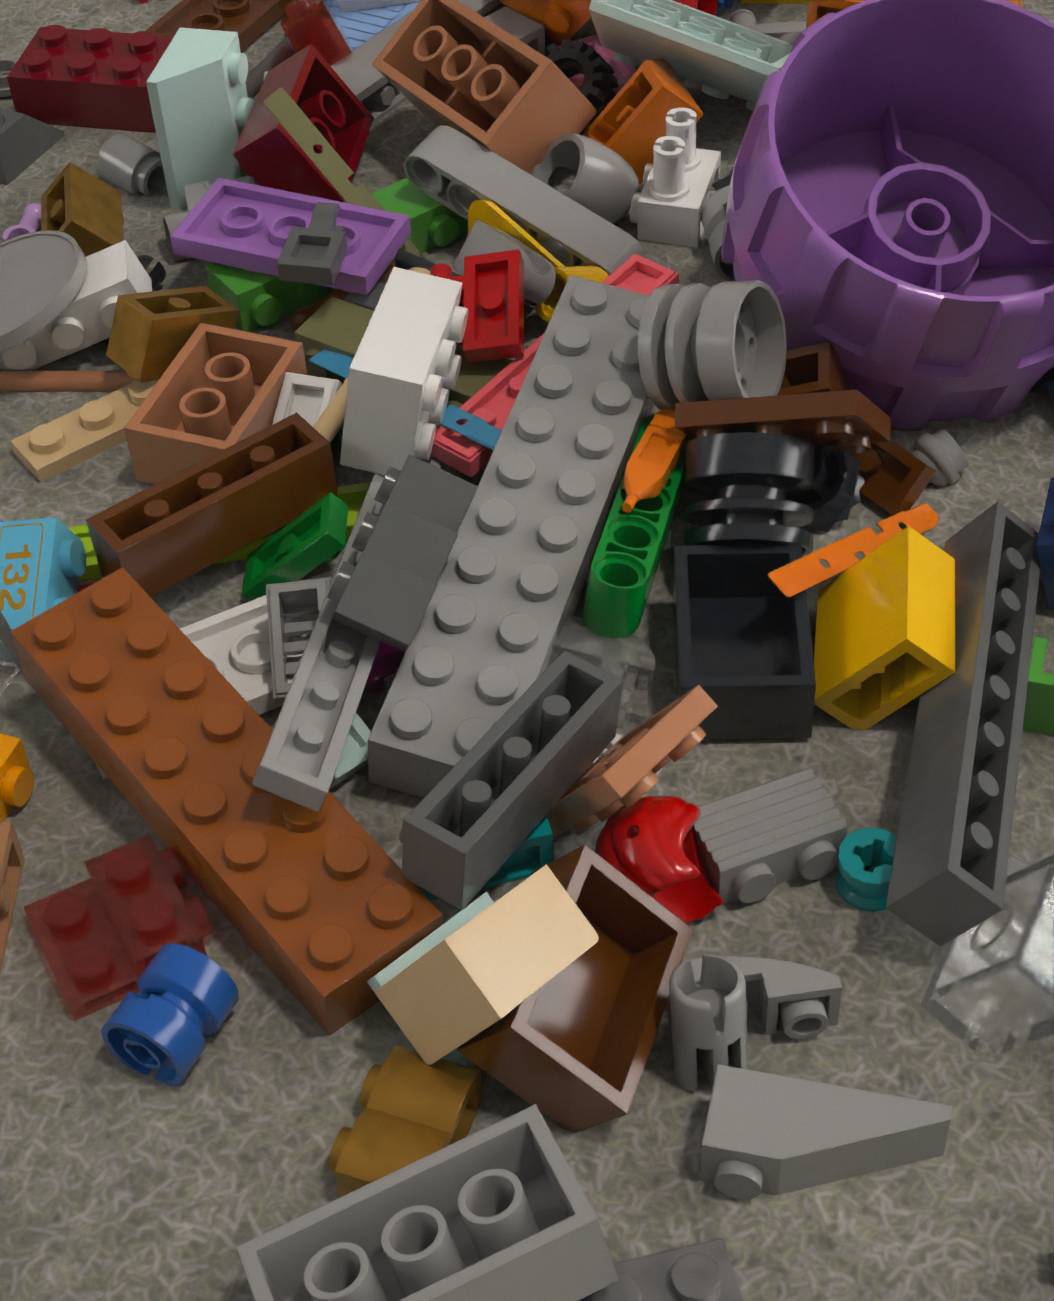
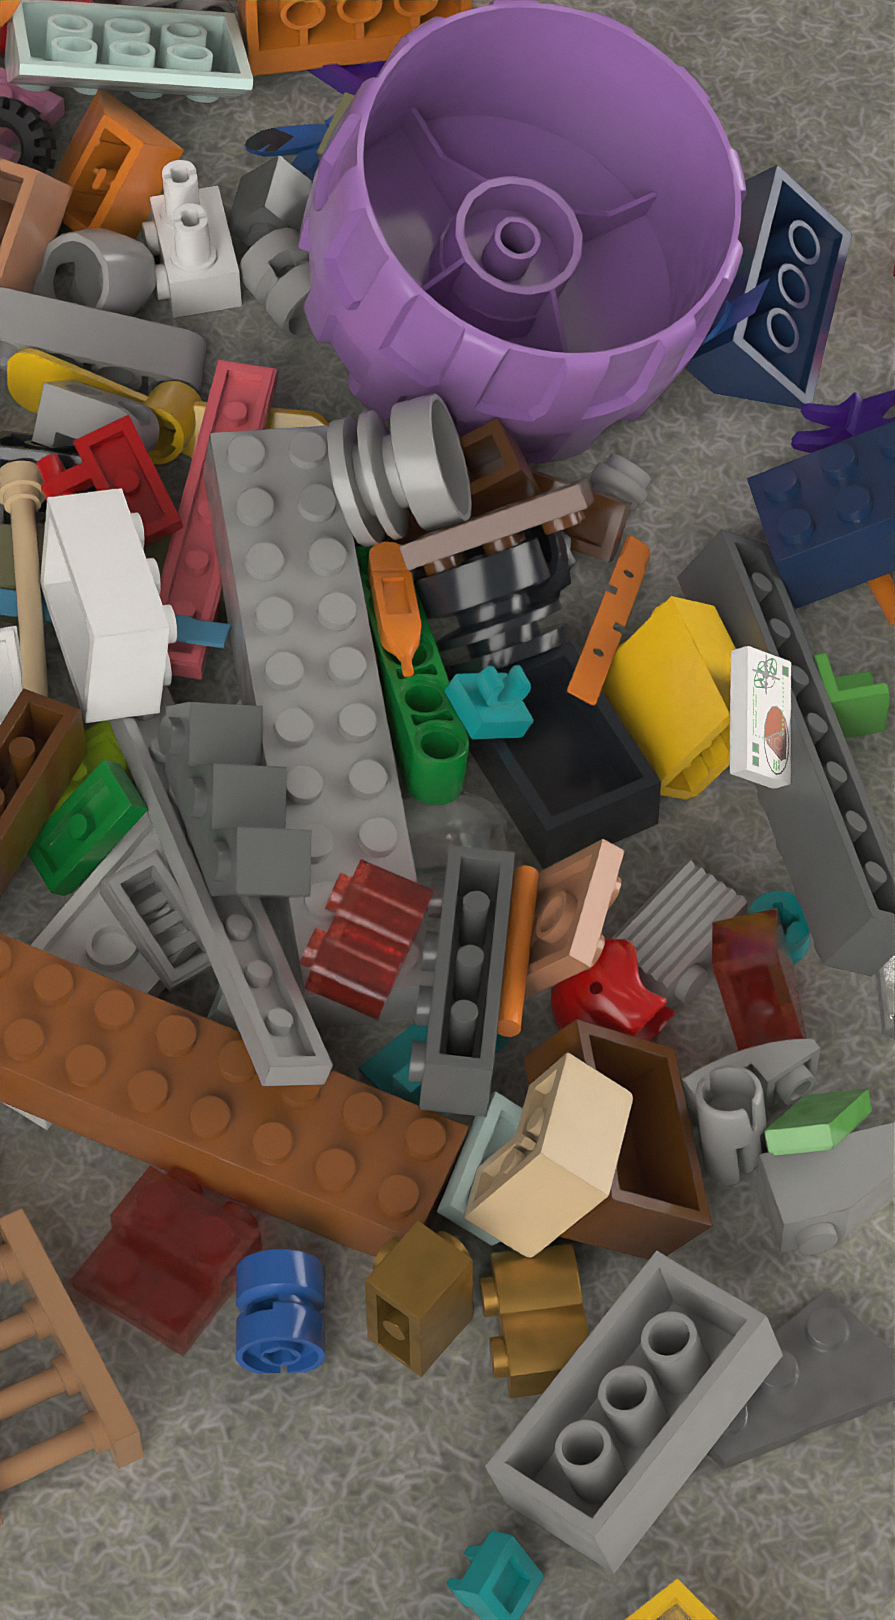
camera: 30 degrees left, 10 degrees up
(296, 1051) = (419, 1296): none -> pearl gold brick
(440, 703) = (367, 938): none -> clear red brick
(575, 770) = (517, 949): none -> orange bar
(687, 558) = (491, 703): none -> teal tile
(798, 1059) = (818, 1122): none -> bright green tile
(813, 897) = (757, 979): none -> clear red slope
(937, 655) = (760, 717): none -> white tile

